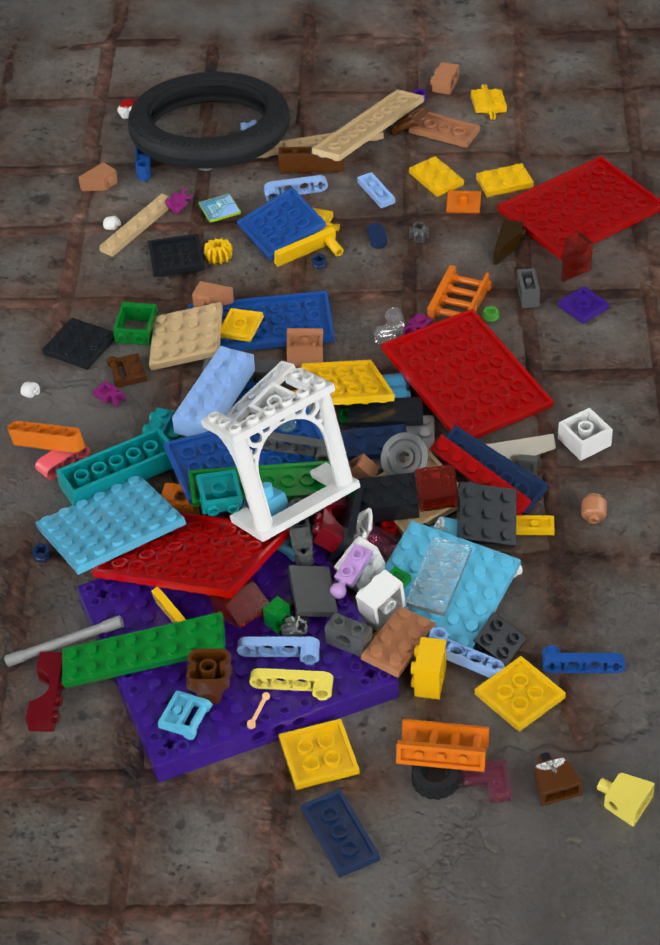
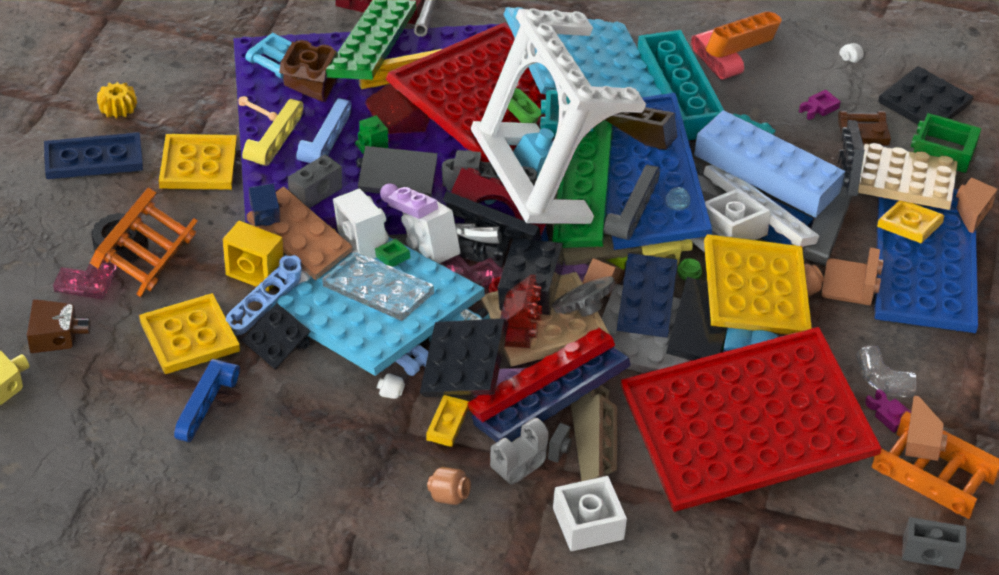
camera: 100 degrees right, 0 degrees up
(191, 351) = (851, 157): none -> black plate
(213, 526) = (523, 107): none -> bright green plate
(214, 454) = (651, 128): none -> dark brown slope
(259, 840) = (117, 100): none -> yellow gear
(294, 627) = (345, 144): flat silver gear -> none
(397, 650) = (264, 205): none -> dark blue brick
(447, 293) = (925, 432): none -> nougat slope
(490, 314) = (893, 494): bright green plate -> none
(558, 481) = (523, 455): none -> light grey piece

